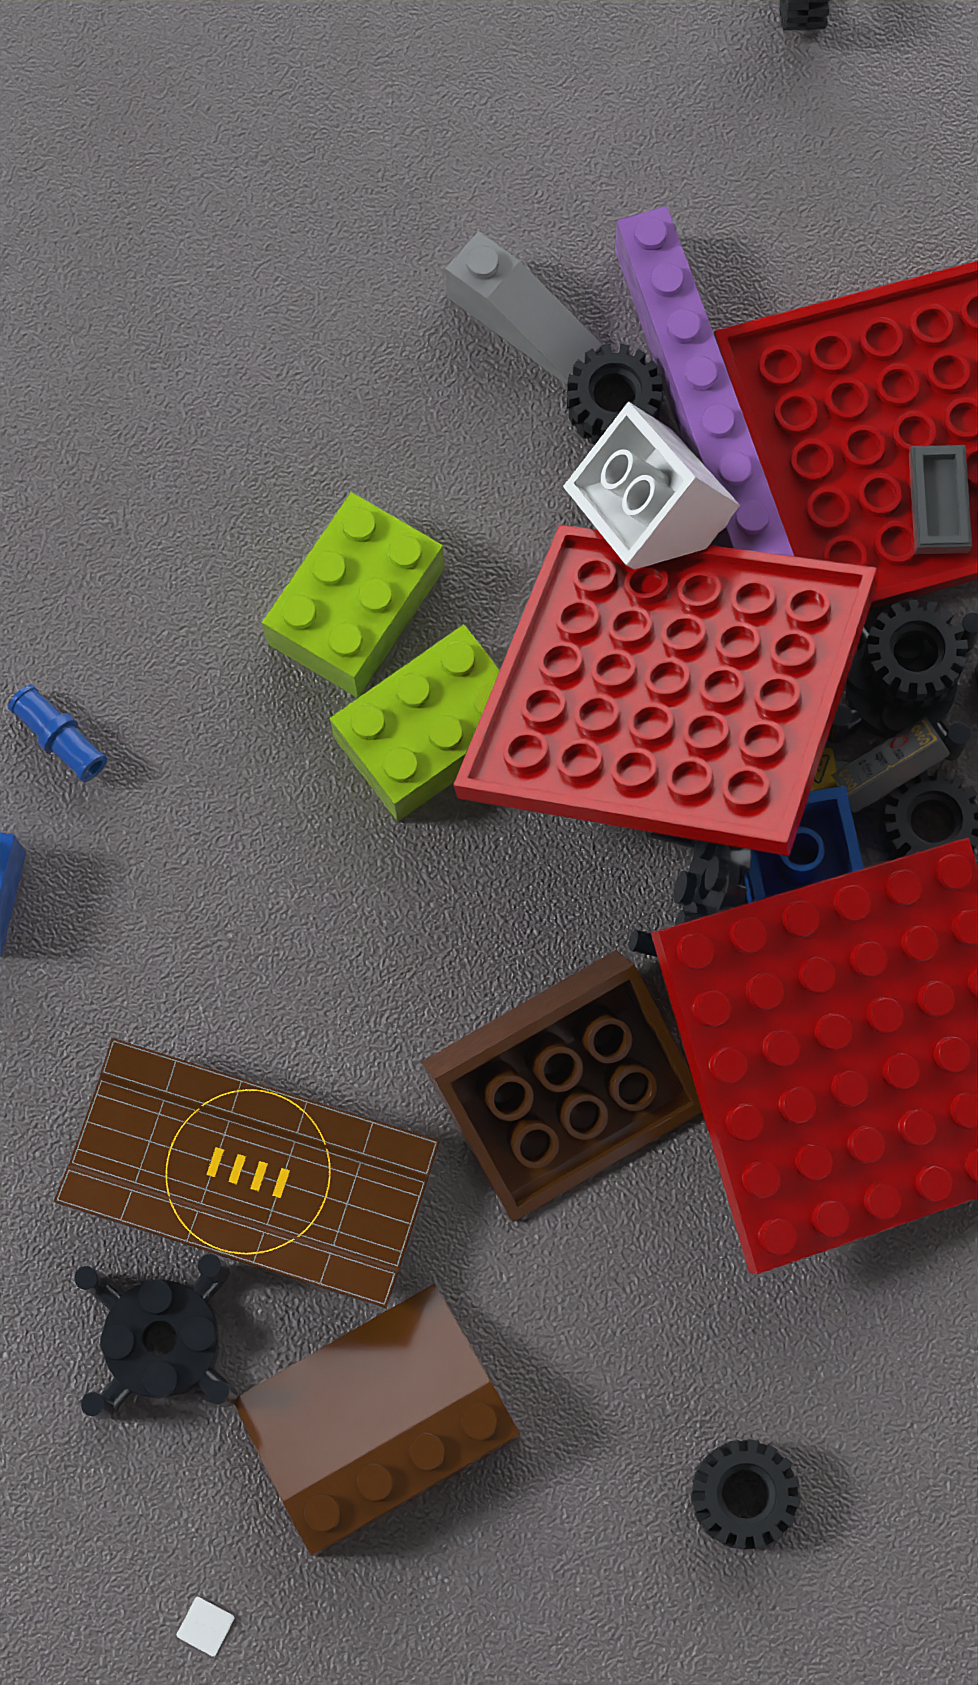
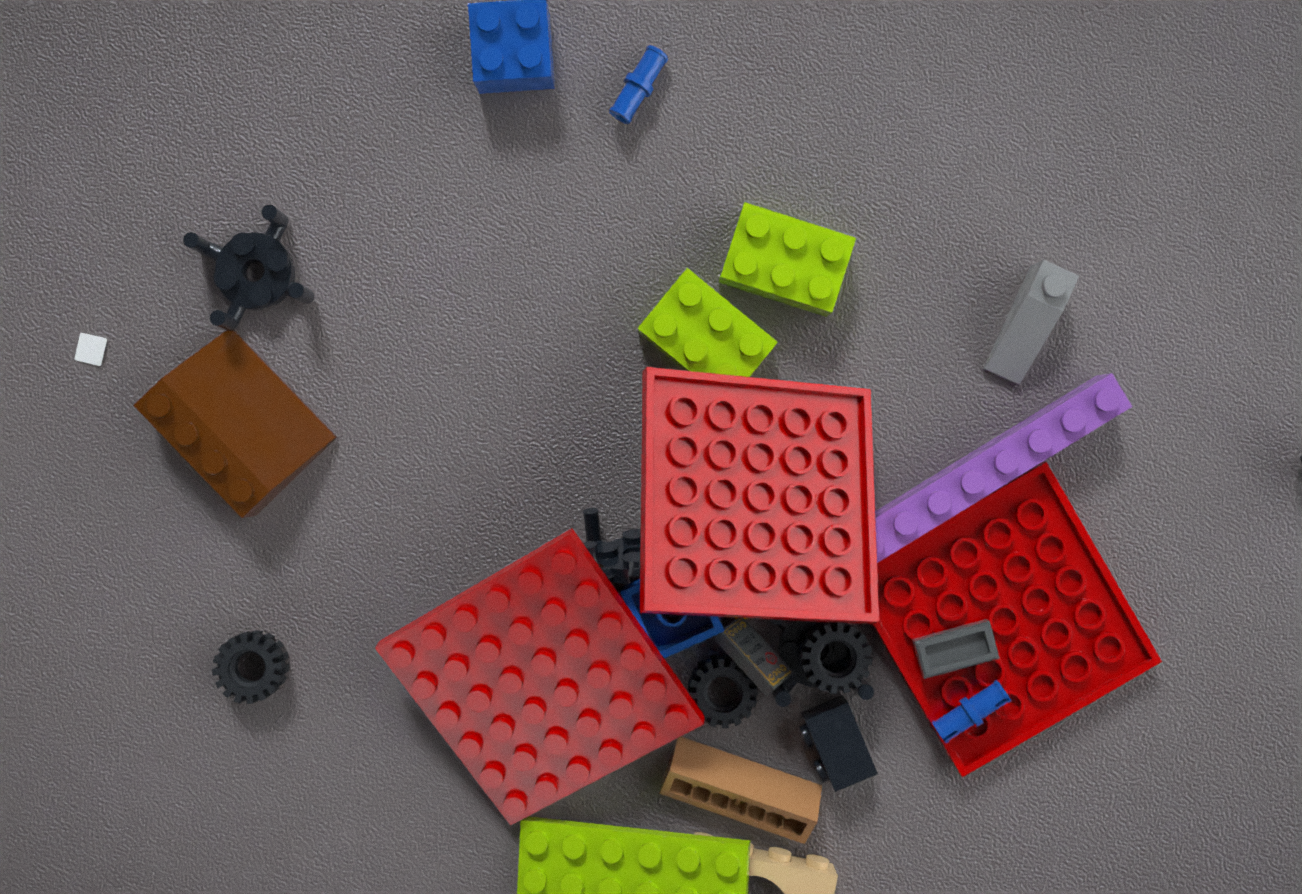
camera: 70 degrees right, 15 degrees up
(248, 1172) = (366, 297): reddish brown hinge -> none
(565, 1084) = (483, 486): reddish brown slope -> none
(605, 368) = (1003, 397): black tyre -> none
(649, 492) = (906, 447): white slope -> none

